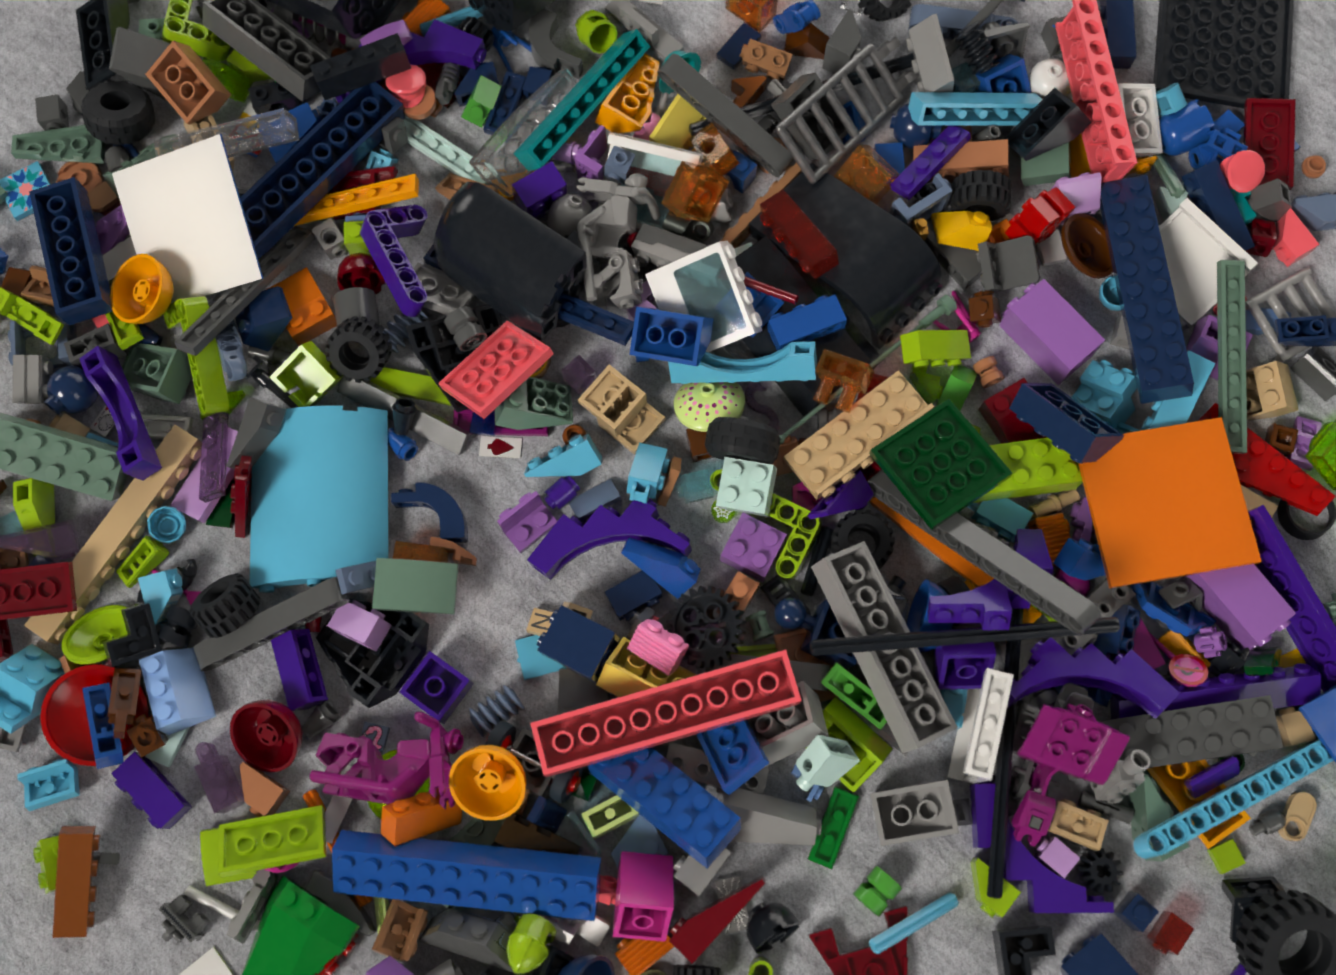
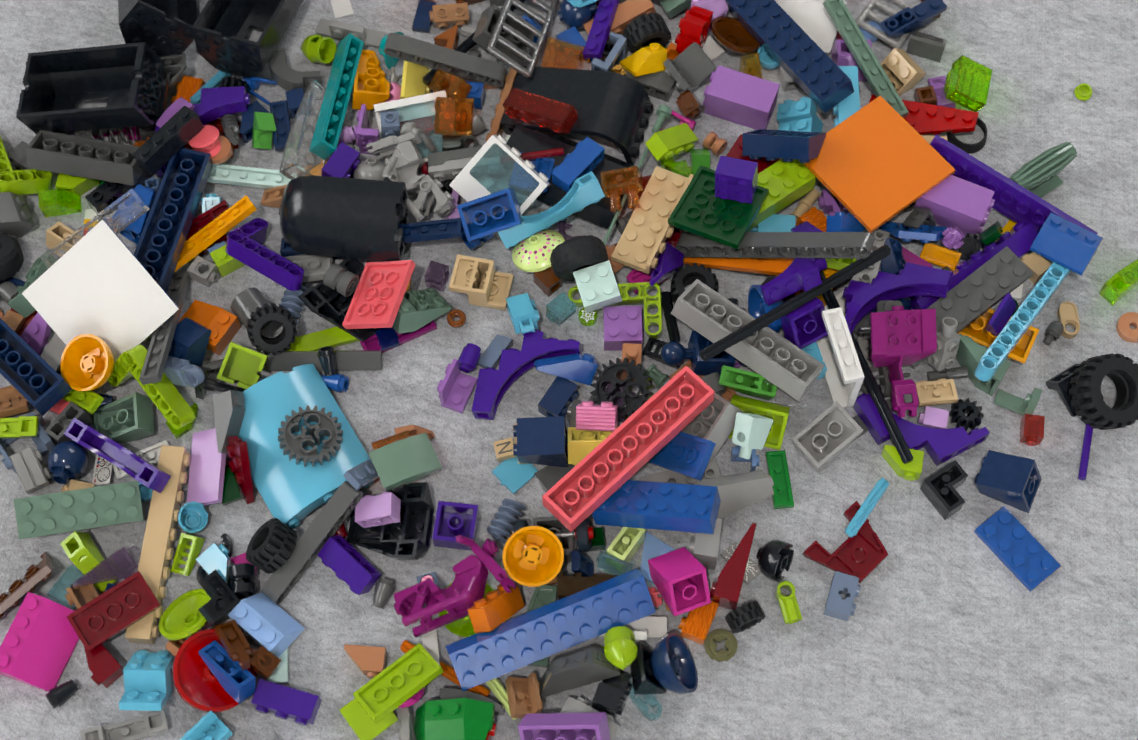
camera: 30 degrees left, 10 degrees down
(187, 83) = (39, 211): nougat slope -> none
(213, 457) = (203, 454): clear purple plate -> none
(218, 779) = (332, 668): clear purple brick -> none
(266, 735) = (346, 624): dark red piece -> none
(304, 506) = (325, 426): none -> dark grey gear
(359, 271) = (239, 279): dark red cylinder -> none
(394, 135) = (213, 180): dark grey bracket -> none
(452, 520) = (384, 406): dark blue arch -> none
(500, 447) = (407, 351): white sticker -> none
(570, 460) = (465, 331): medium azure slope -> none
(670, 480) = (540, 304): medium nougat tile -> none
(877, 891) = (832, 501): bright green wheel -> none
(976, 444) = (736, 179): none -> dark purple brick
(1085, 297) = (751, 65): none -> clear yellow slope
(1135, 912) = (1003, 427): dark blue brick -> none
(1171, 892) = (1017, 404): none -> sand green bracket
(1184, 668) = (947, 261): piece -> none
(1226, 856) = (1039, 366): lime tile -> none

